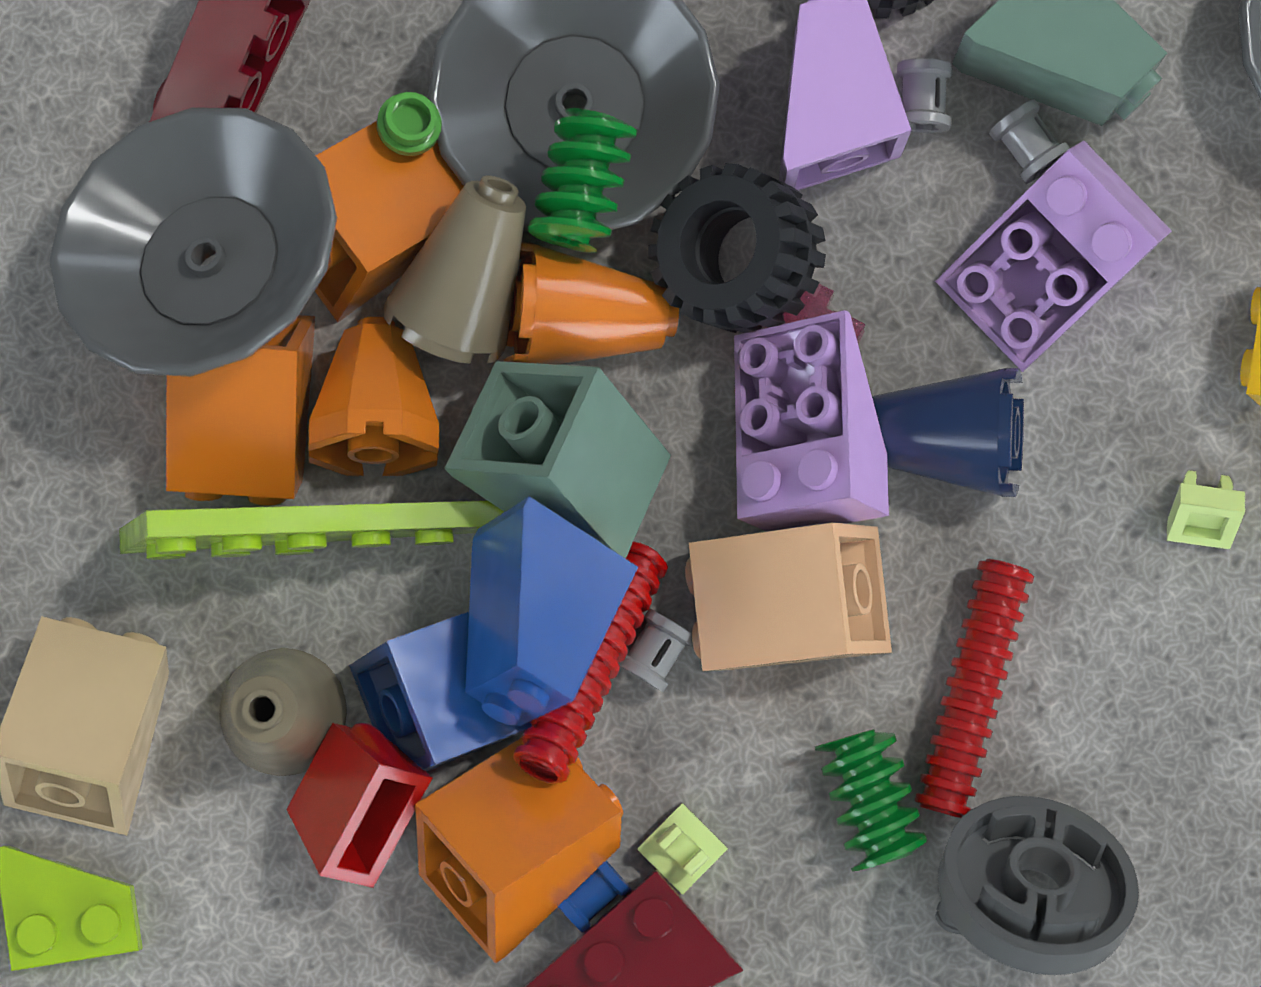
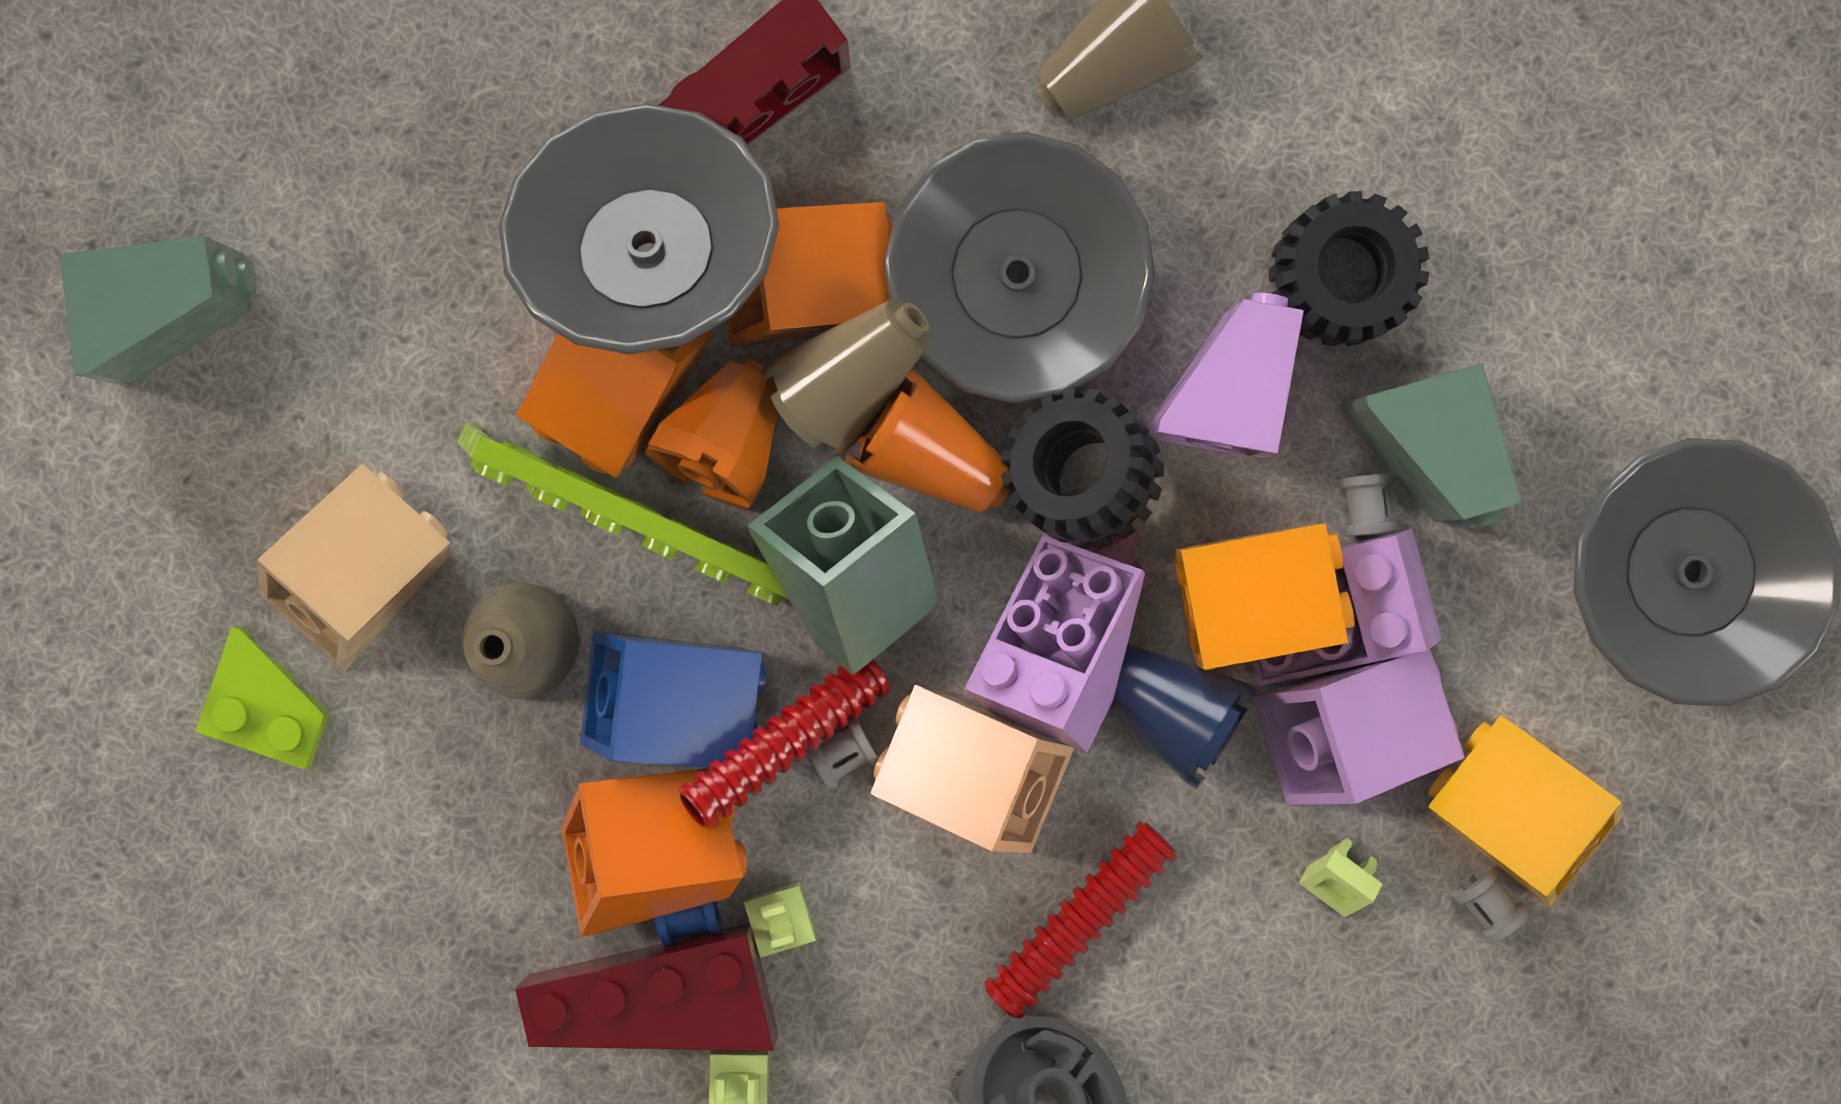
camera: 25 degrees right, 5 degrees up
(356, 802) = (536, 751): red torso -> none
(409, 124) = (870, 222): bright green plate -> none
(537, 611) = (759, 685): blue slope -> none
(580, 179) = (986, 346): green piece -> none
(872, 798) = (952, 965): green piece -> none
(925, 93) = (1306, 419): light grey bush -> none
(972, 274) = (1263, 595): none -> light orange slope
(1138, 356) = (1358, 730): none -> lavender slope

